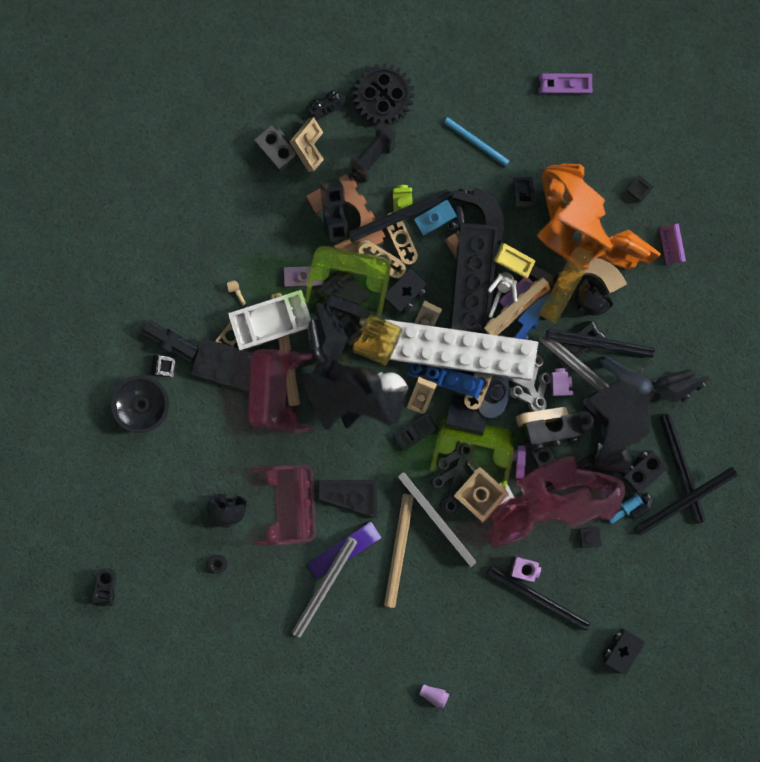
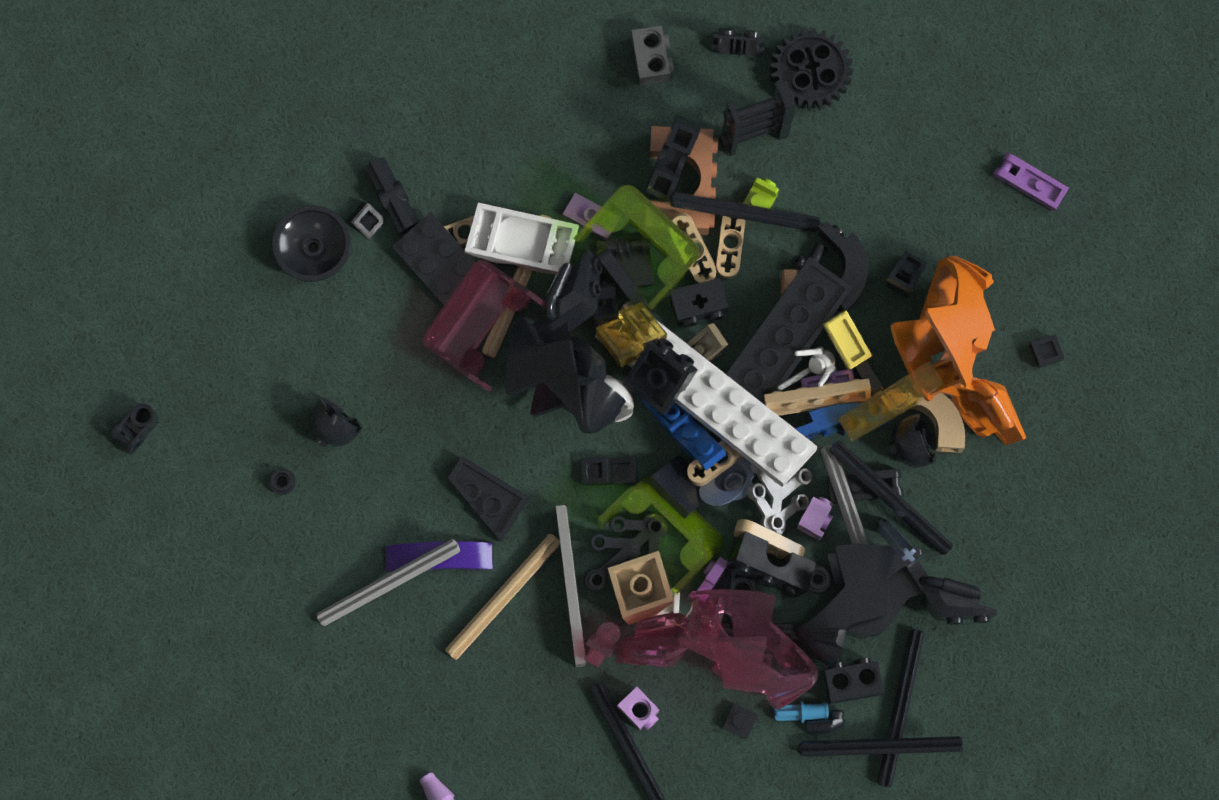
camera: 30 degrees right, 10 degrees down
(233, 286) = (504, 180): tan hand -> none
(293, 503) = (417, 463): clear pink windscreen -> none
(304, 142) = (684, 69): tan plate -> none
(413, 356) = (660, 374): none -> black plate
(421, 395) = (643, 431): tan slope -> none
(435, 217) = (786, 241): dark azure plate -> none
(475, 141) = (886, 186): dark azure bar -> none
(479, 544) = (603, 643): none -> clear pink hips
(672, 244) = (1047, 437): medium lavender plate -> none

